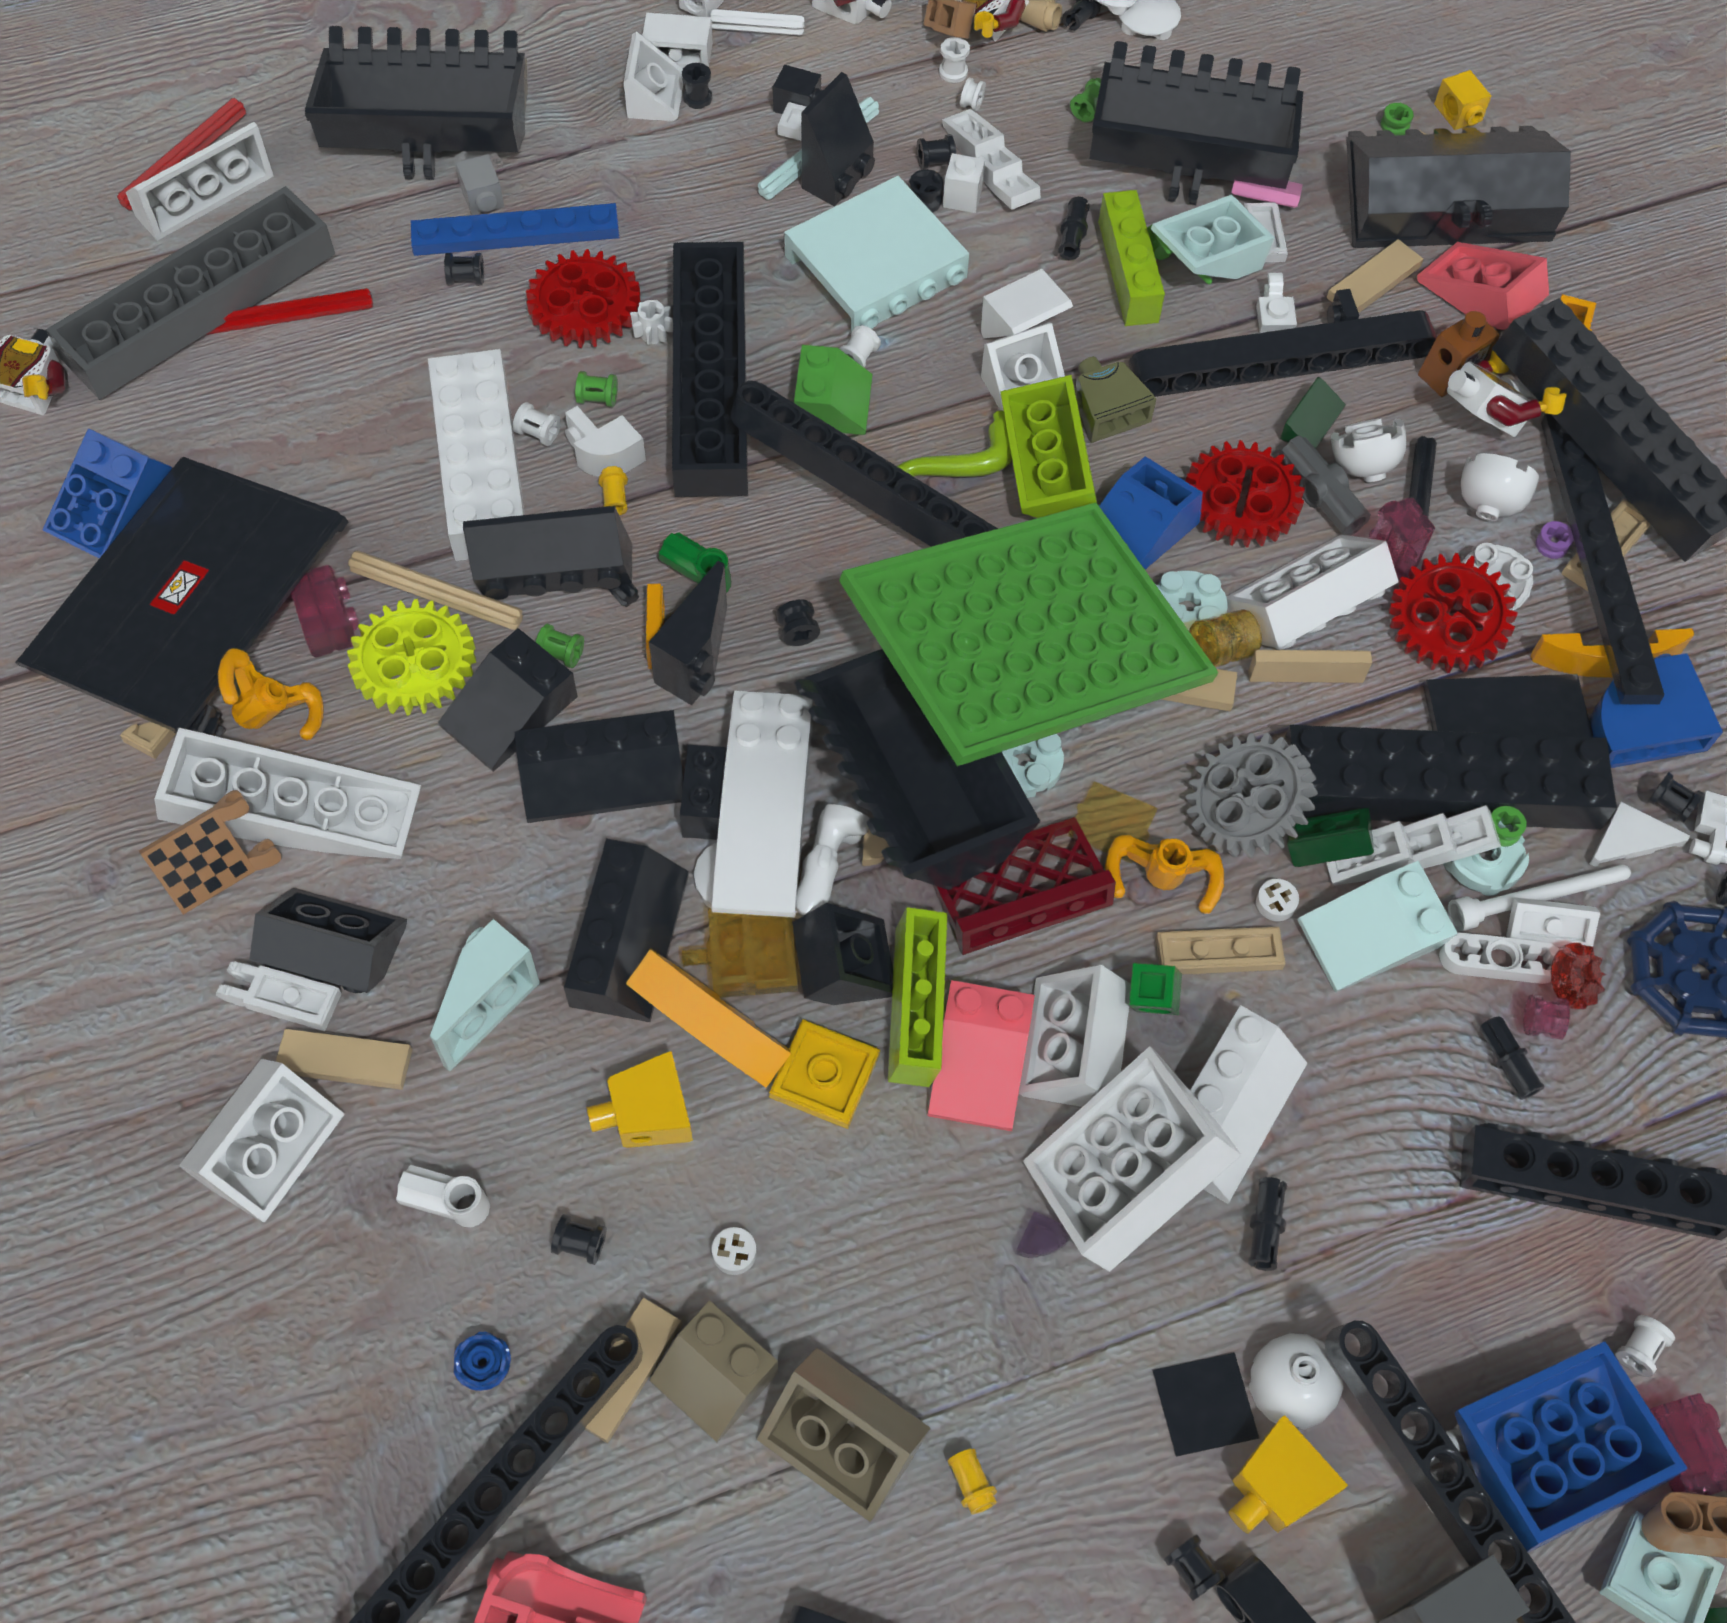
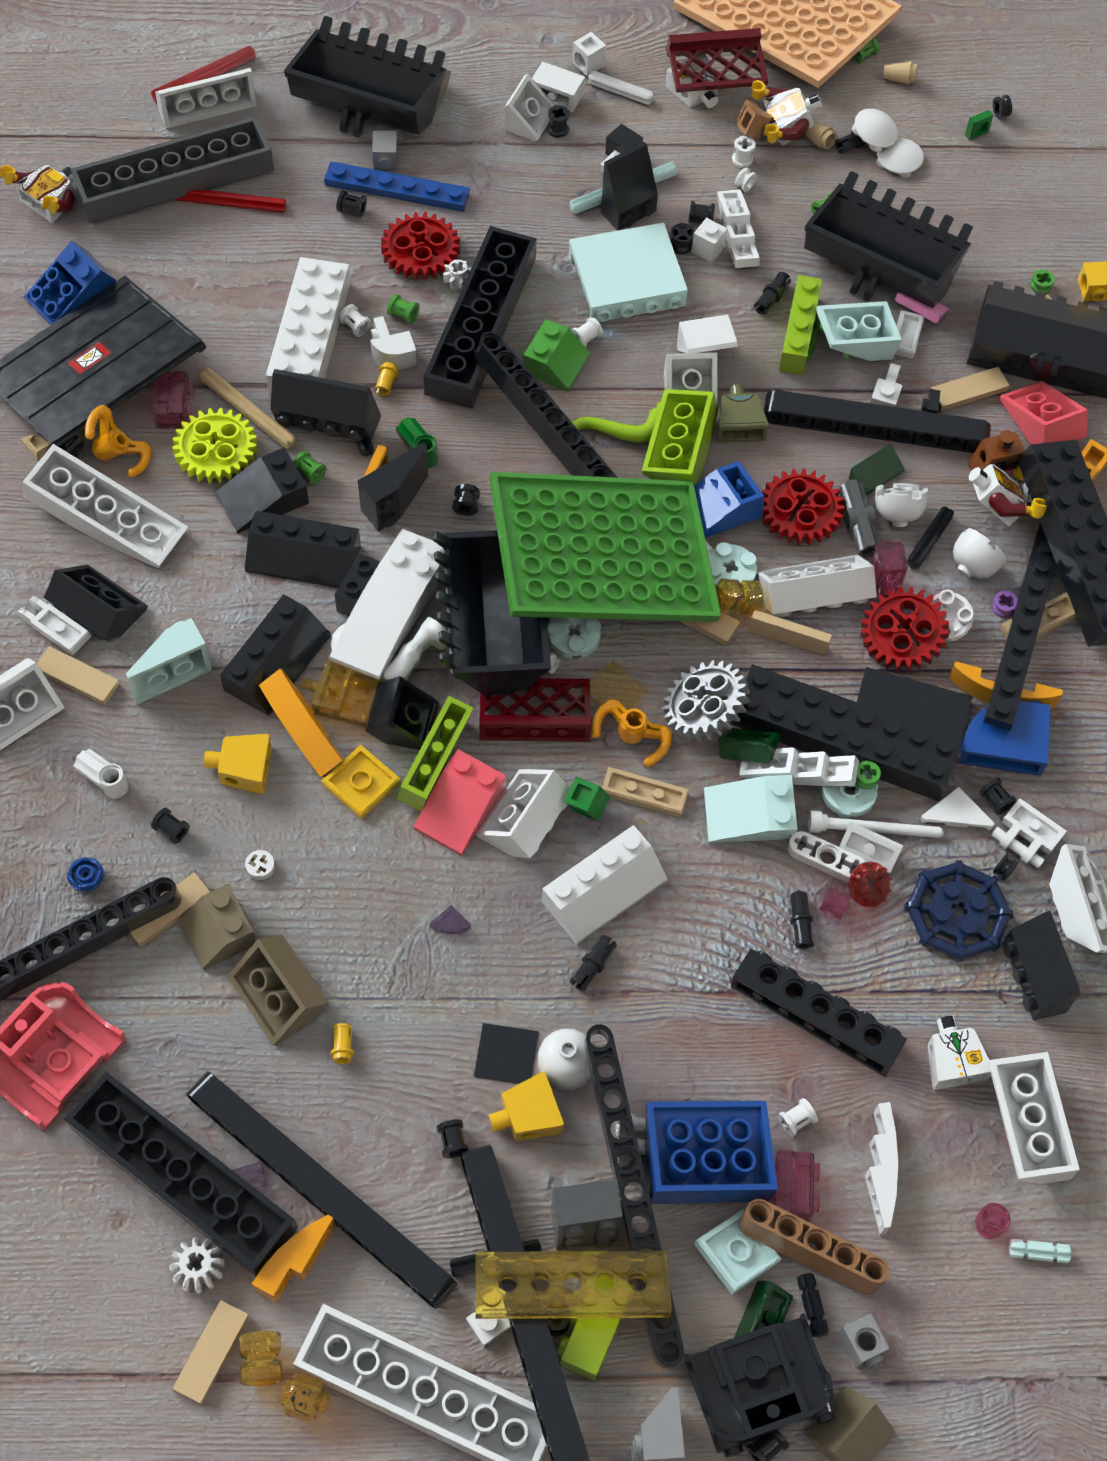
camera: 20 degrees right, 0 degrees up
(204, 856) = (39, 527): medium nougat flag -> none
(1129, 1160) = (518, 892): white slope -> none
(1277, 900) = (697, 773): white tile -> none

